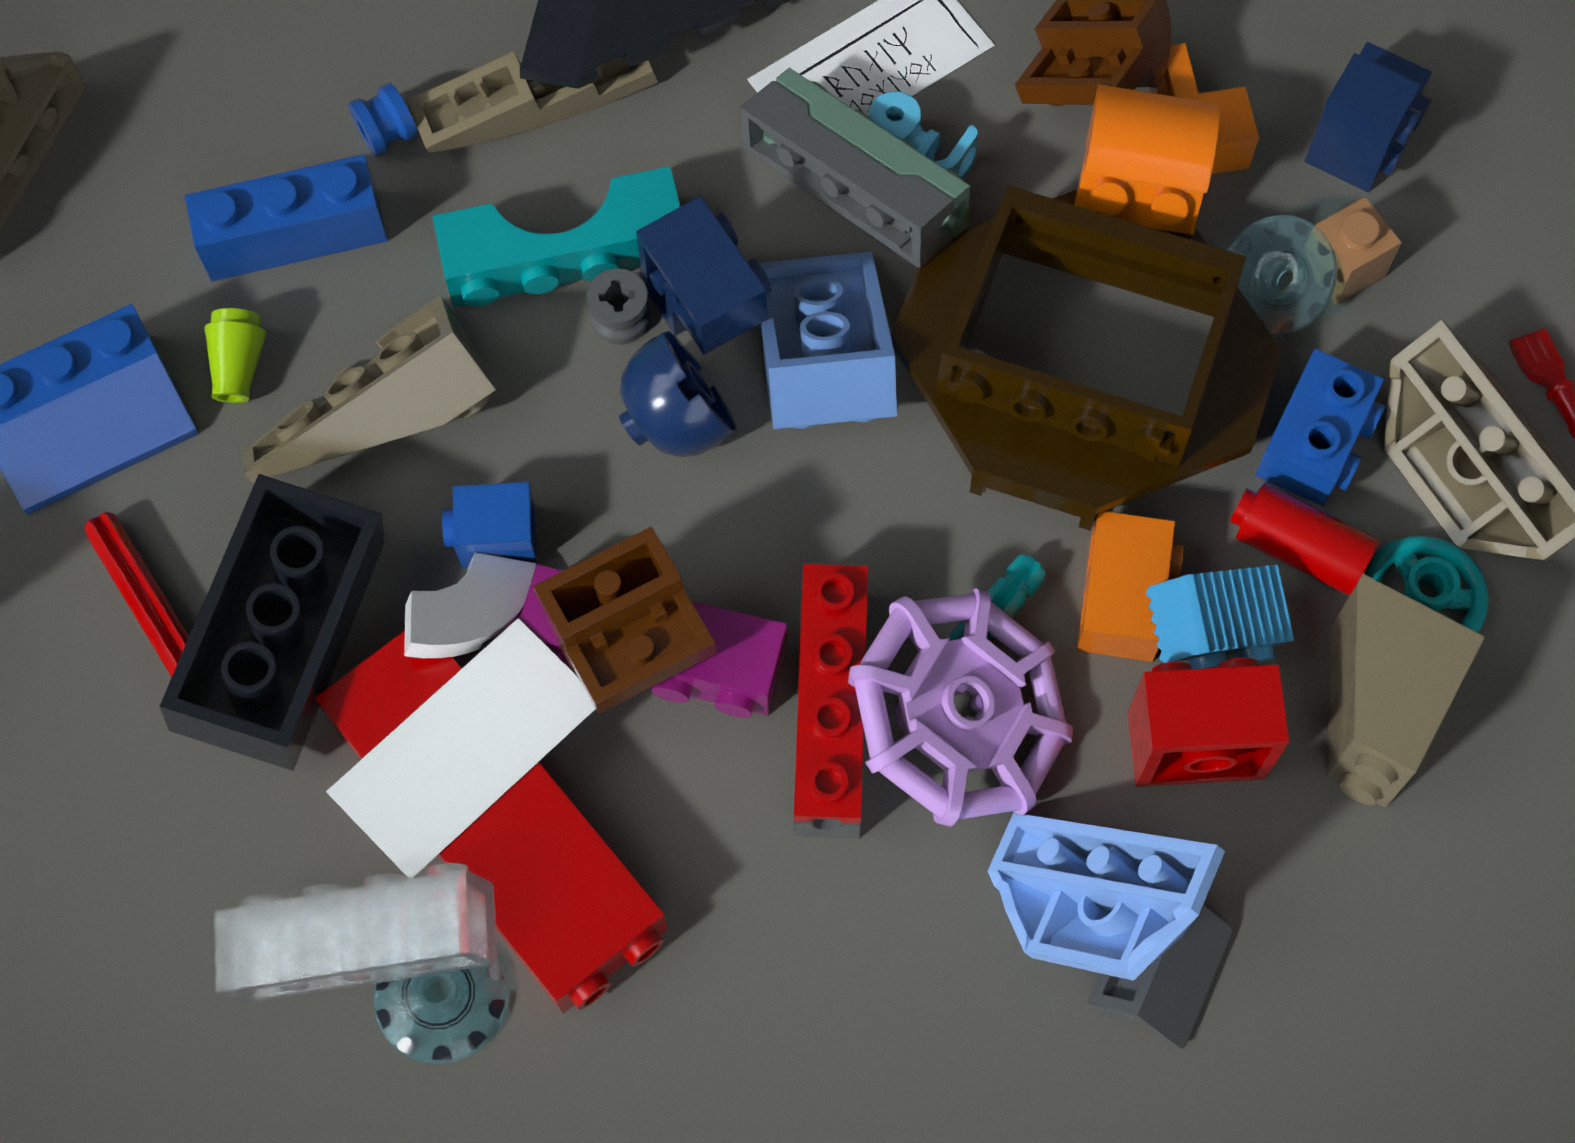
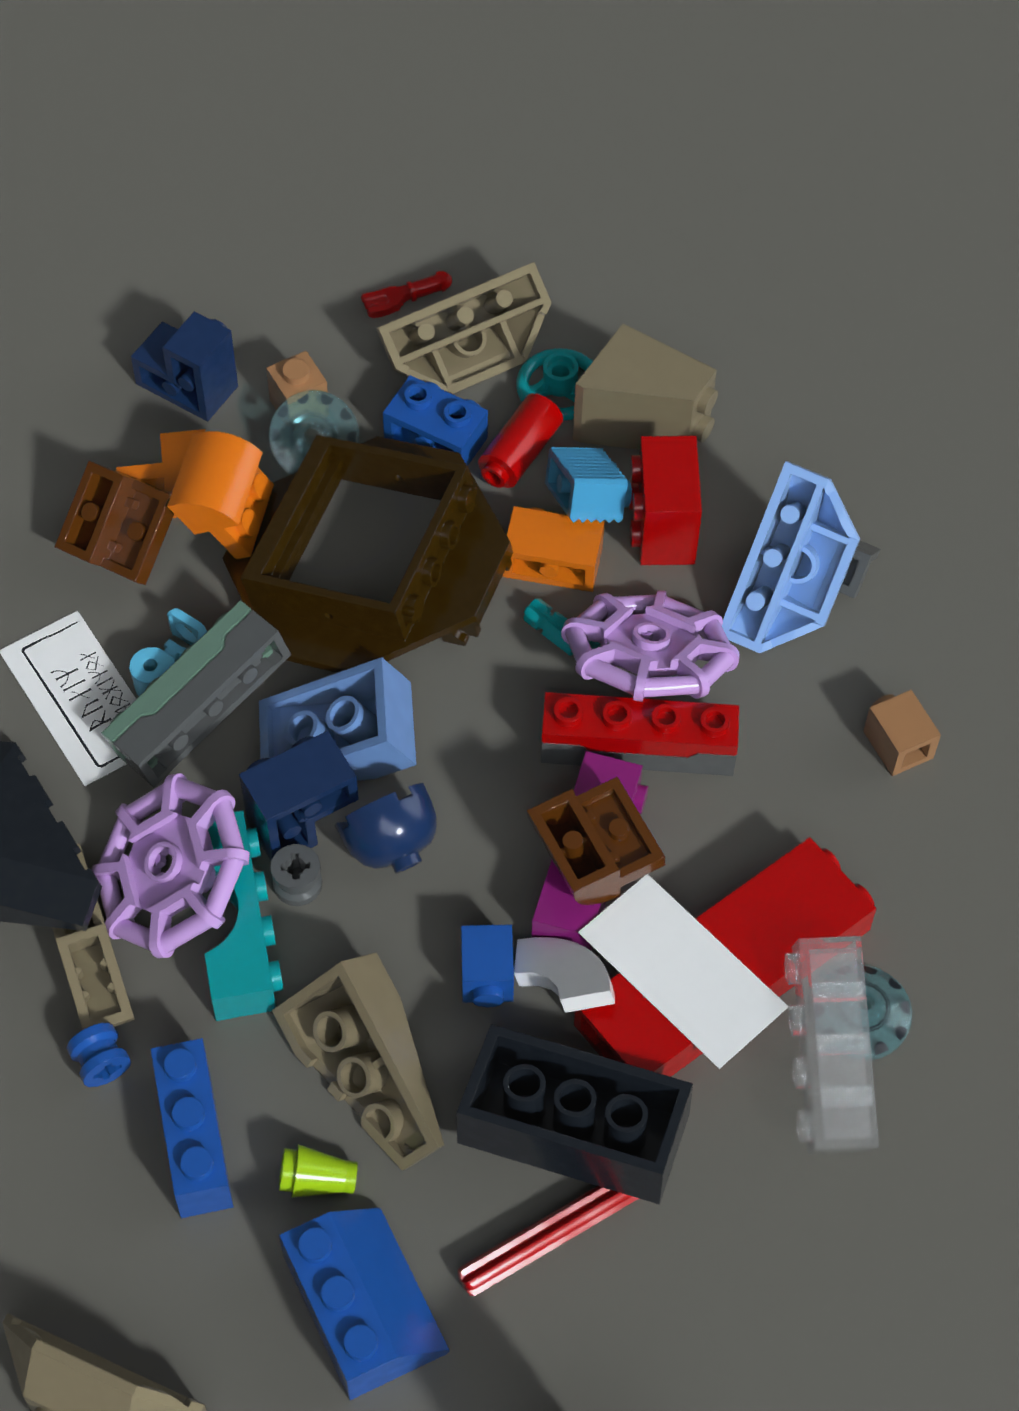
camera: 90 degrees left, 10 degrees down
(606, 155) = (190, 870): none -> lavender plate
(857, 1057) = (901, 732): none -> medium nougat brick

